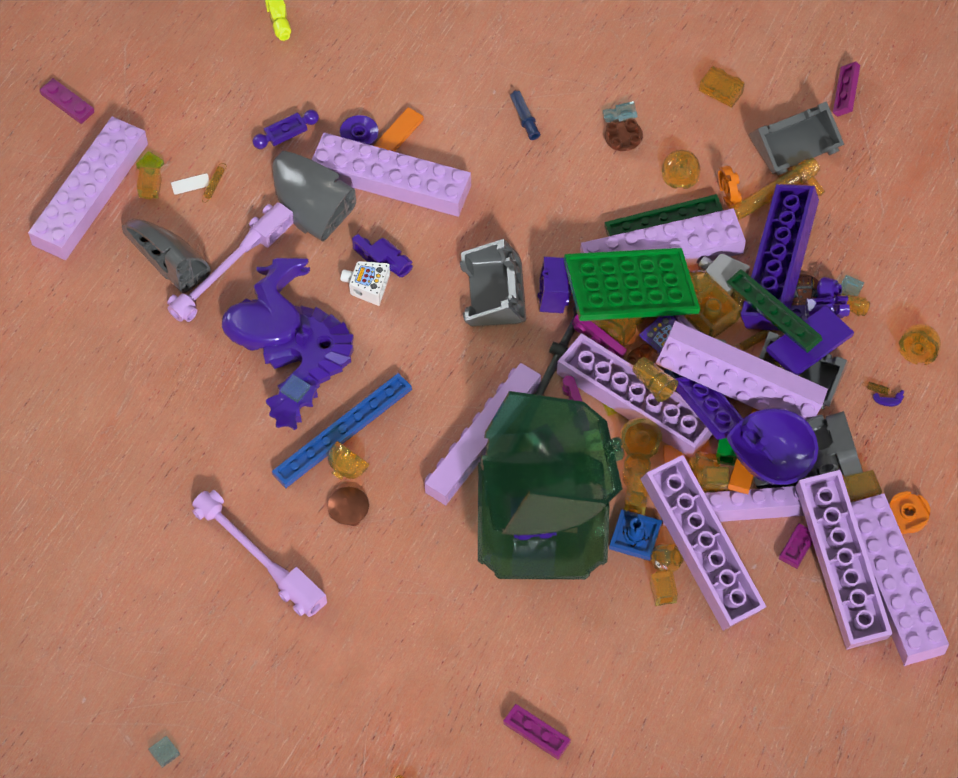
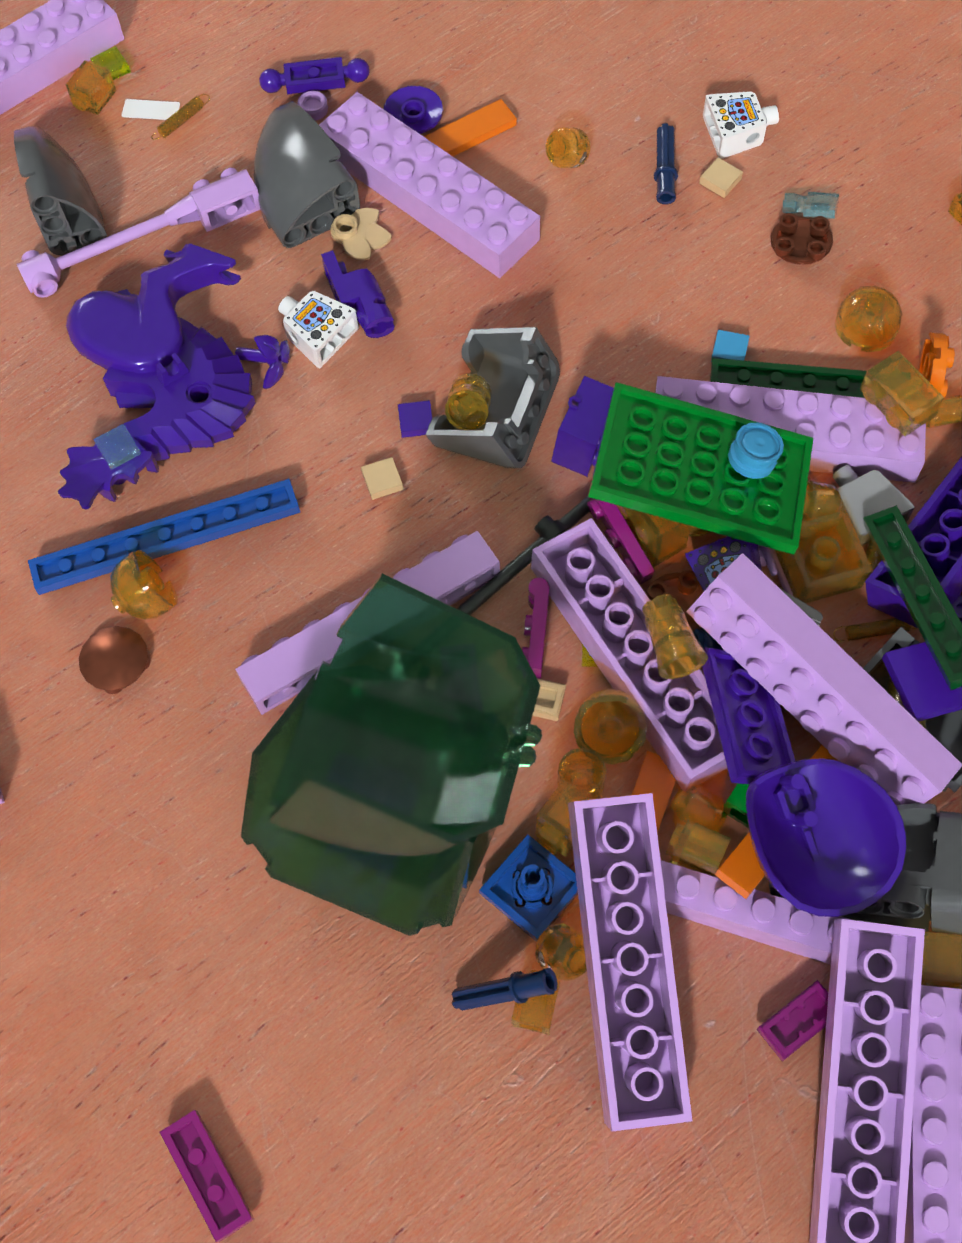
camera: 25 degrees right, 5 degrees up
(293, 146) = (314, 104): none -> lavender tile
(351, 307) = (270, 353): none -> dark purple plant
(366, 217) = (361, 233): none -> tan plate
(448, 354) = (382, 478): none -> tan tile
(451, 314) = (414, 418): none -> dark purple tile
(464, 125) = (567, 147): none -> clear yellow head
(481, 294) = (468, 402): none -> clear yellow wheel
(555, 76) = (737, 121): none -> white torso
(560, 113) = (721, 177): none -> tan tile
(610, 211) = (730, 345): none -> dark azure tile
(652, 580) = (514, 988): none -> dark blue axle
(656, 265) = (755, 450): none -> dark azure wheel
(718, 207) = (901, 393): none -> clear yellow brick

